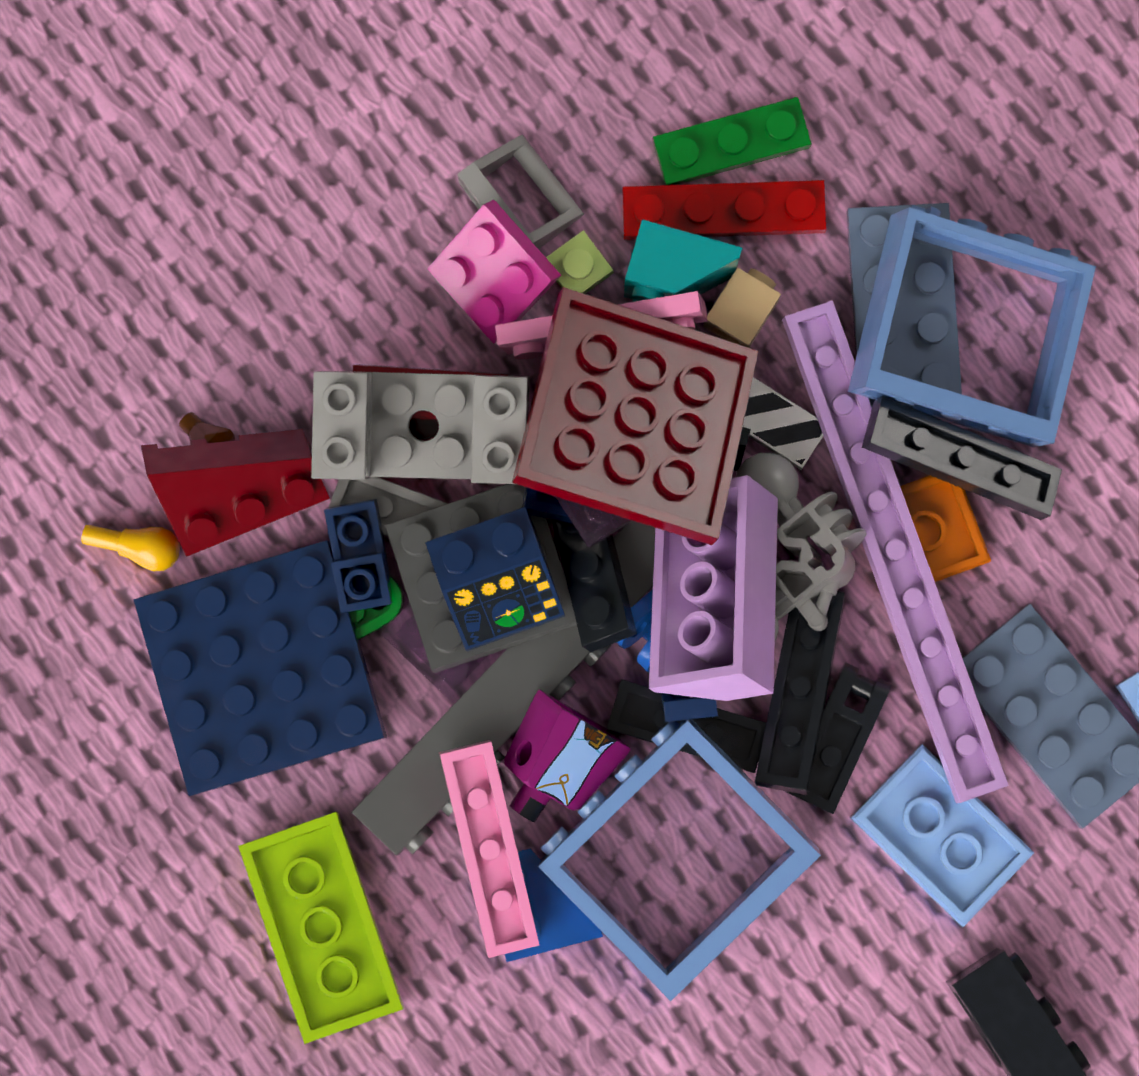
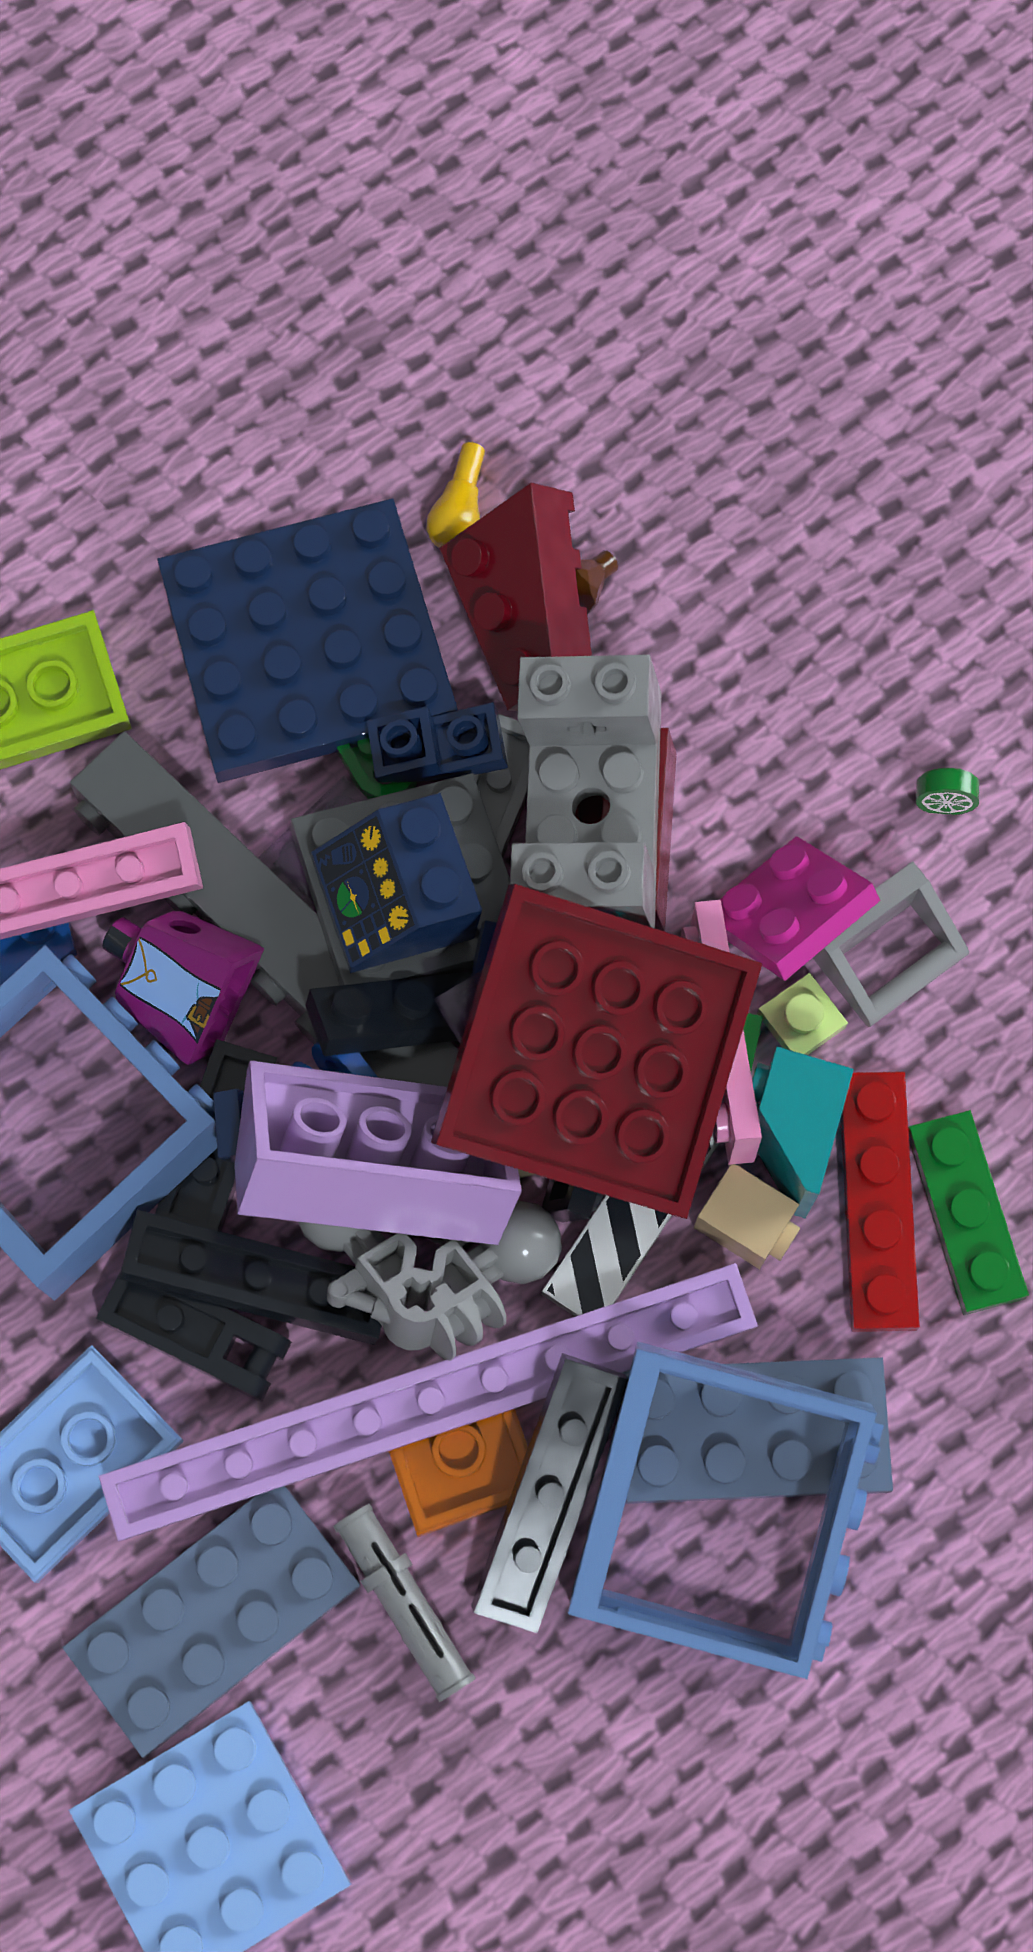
camera: 85 degrees right, 10 degrees down
(390, 147) = (947, 791): none -> green tile
(1024, 581) = (404, 1602): none -> light grey pin

